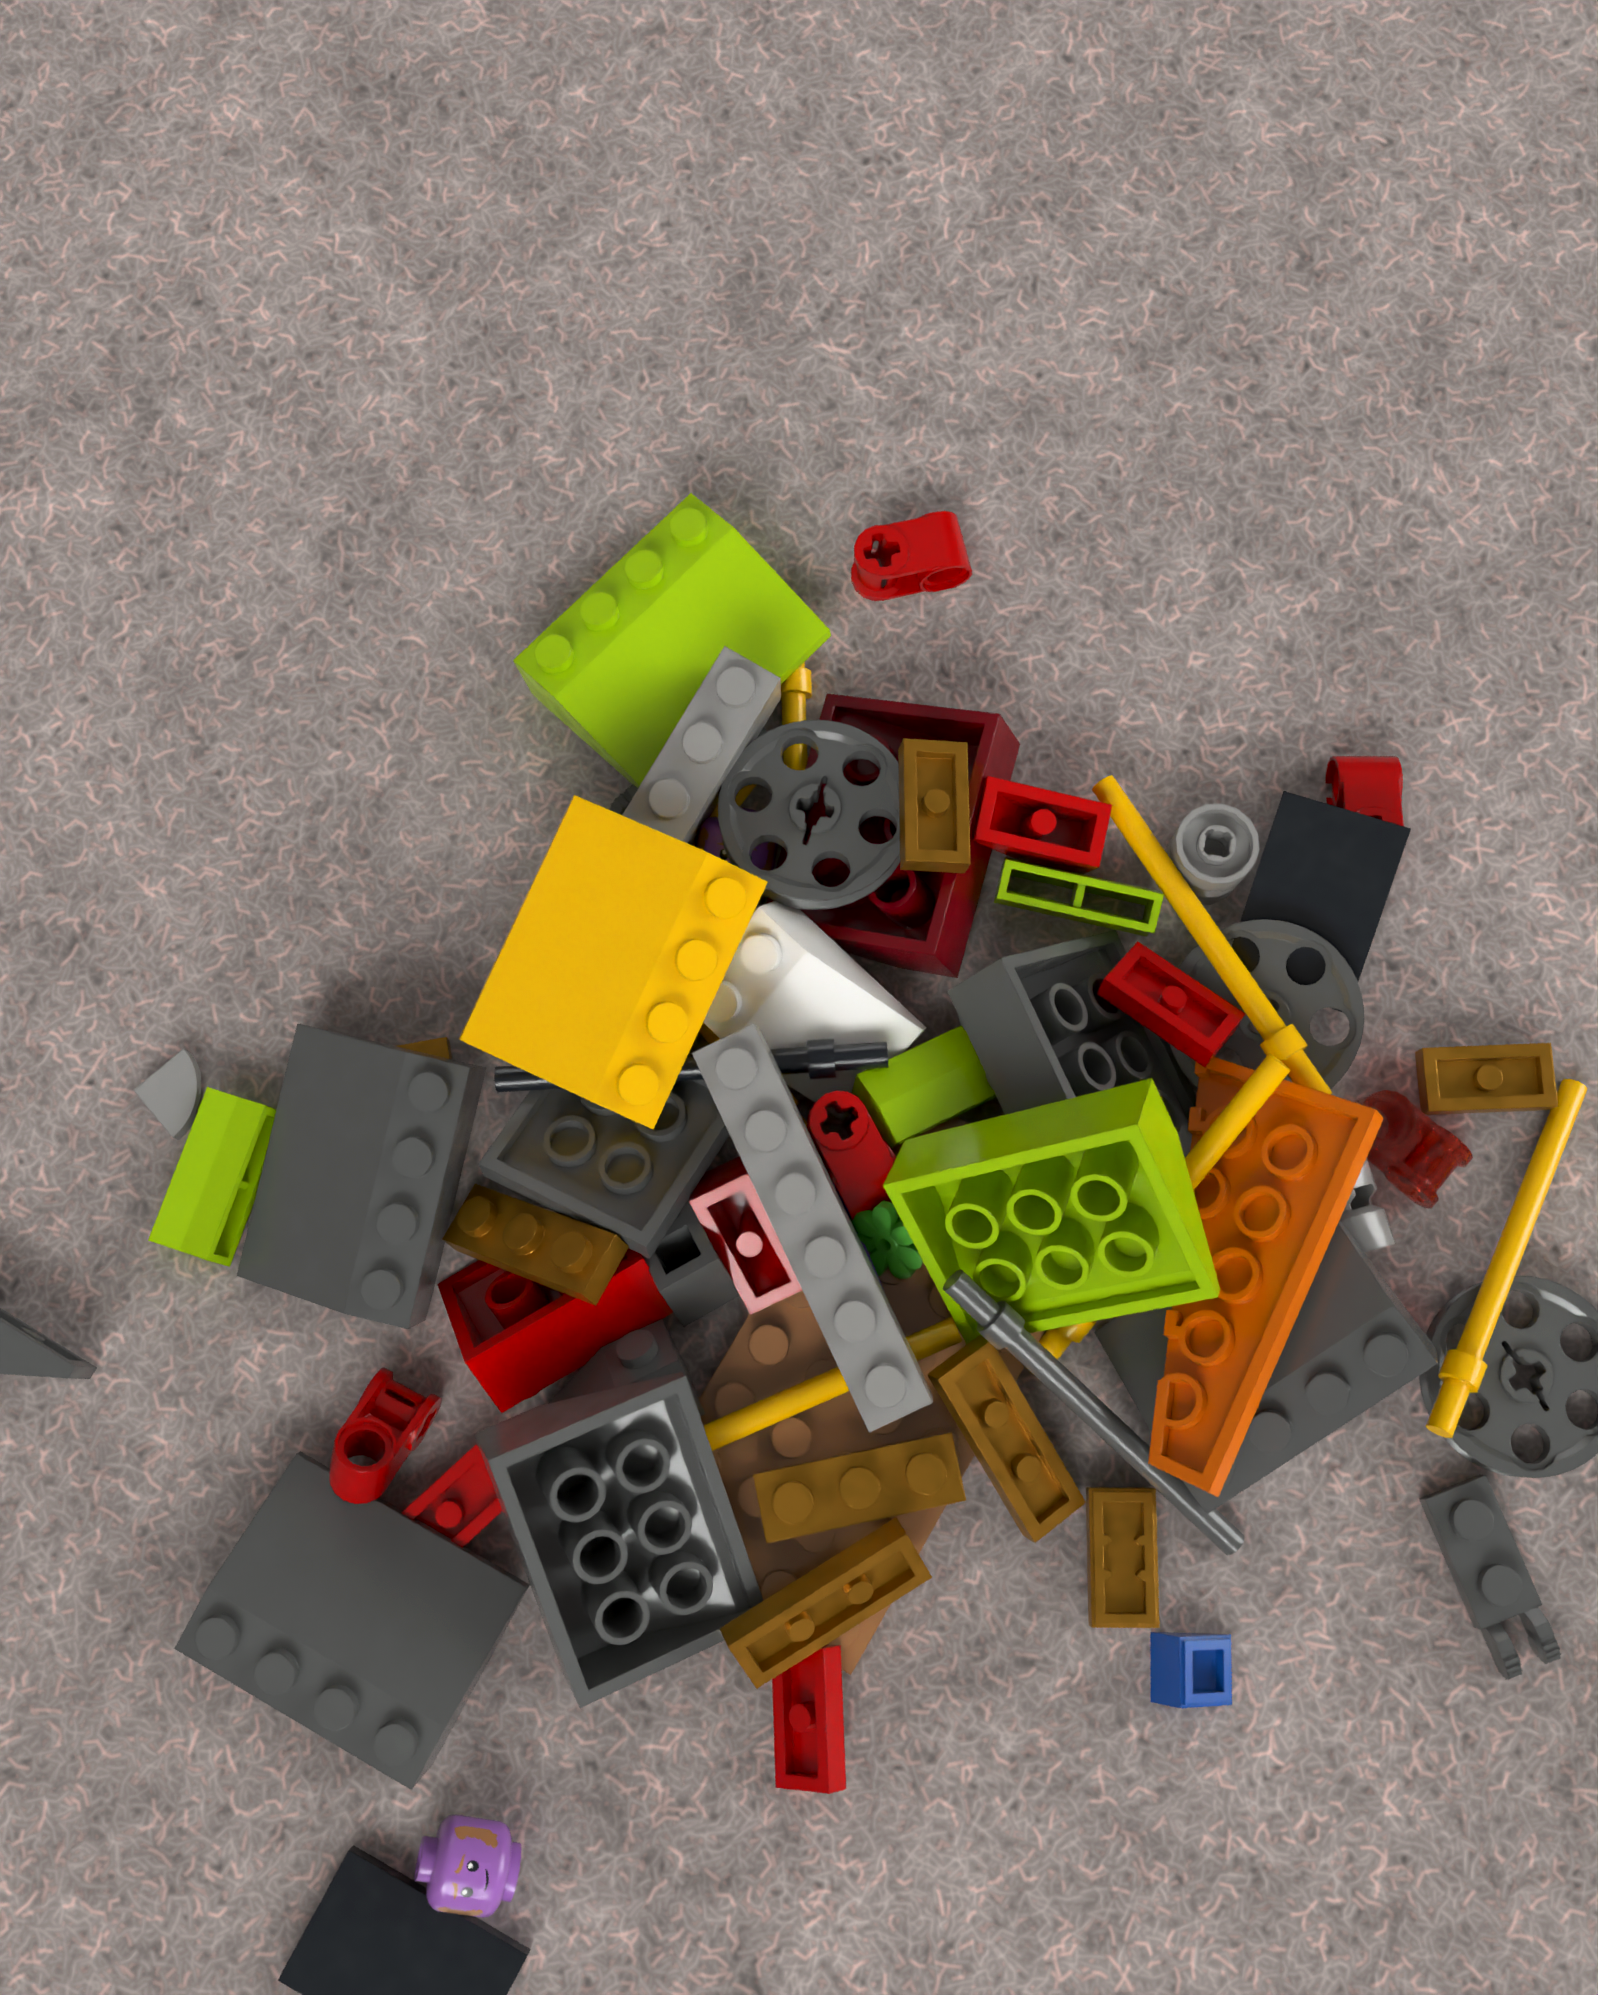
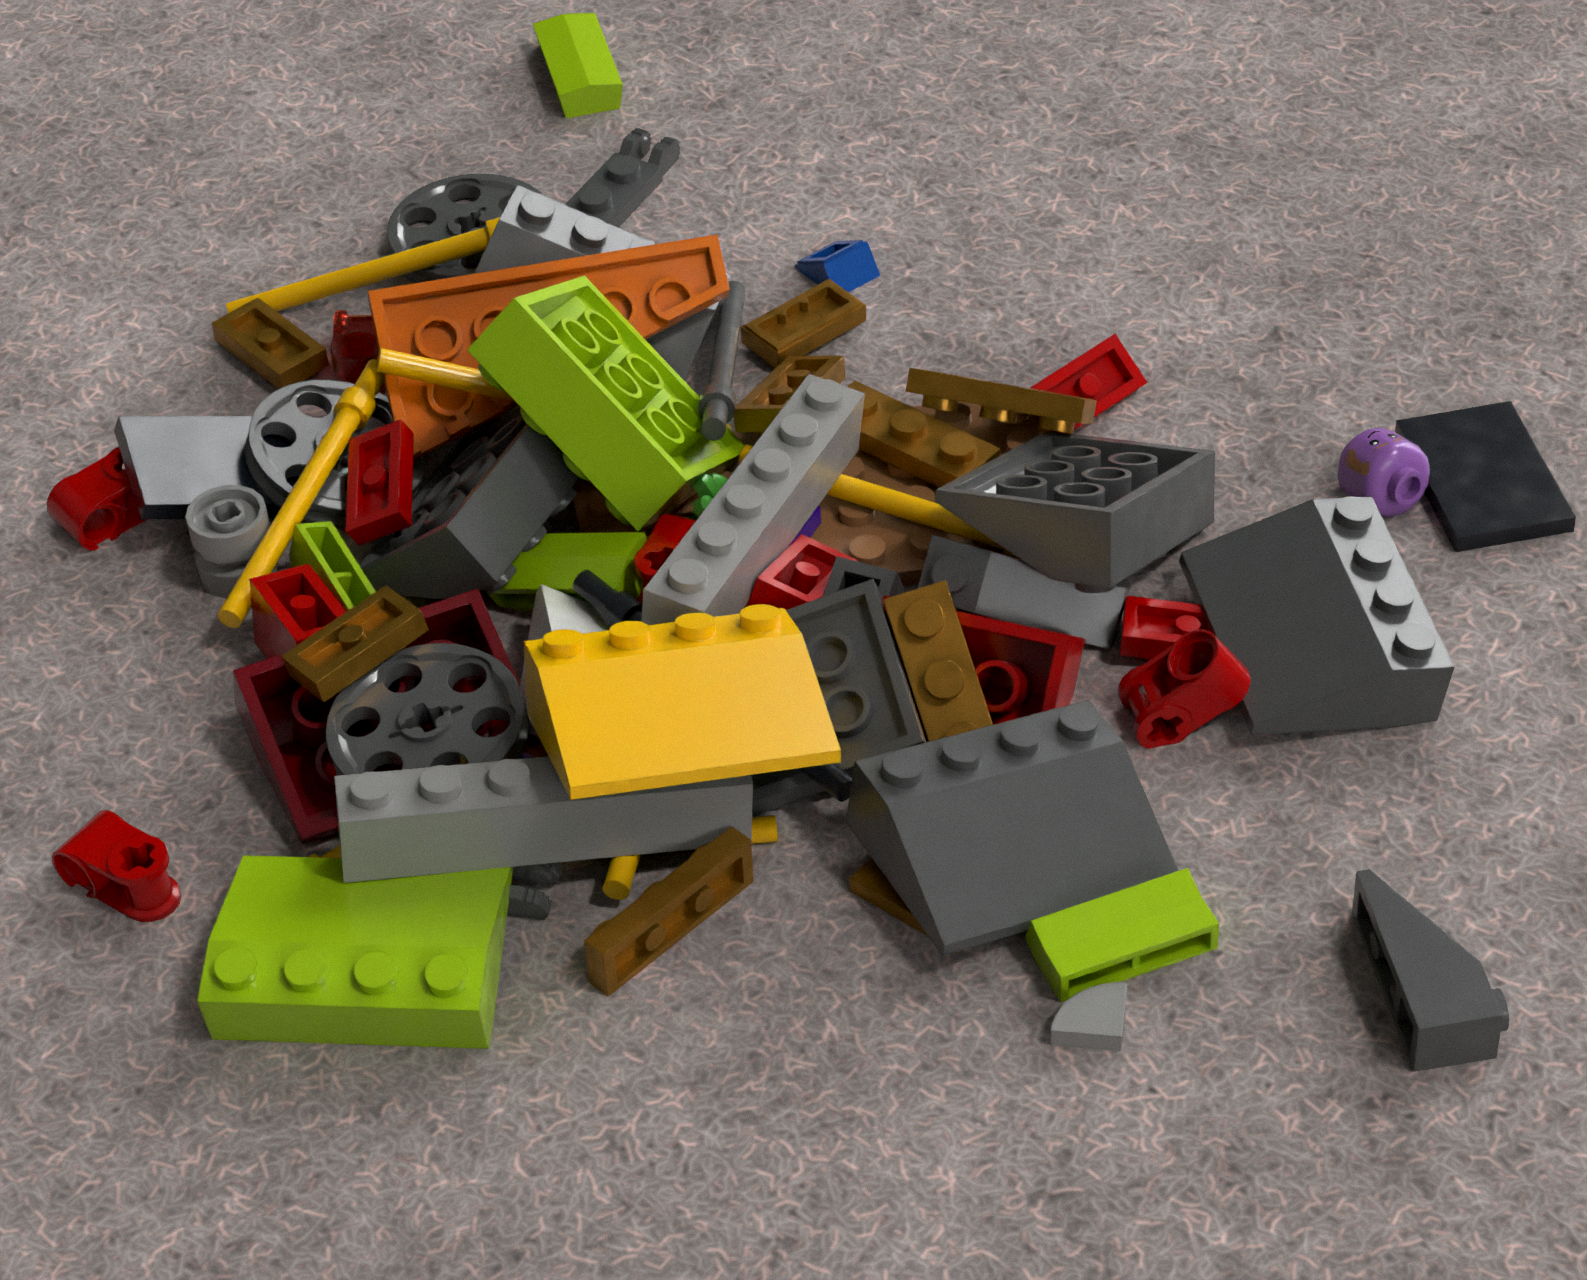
camera: 130 degrees left, 35 degrees down
(519, 825) = (668, 911): none -> pearl gold plate

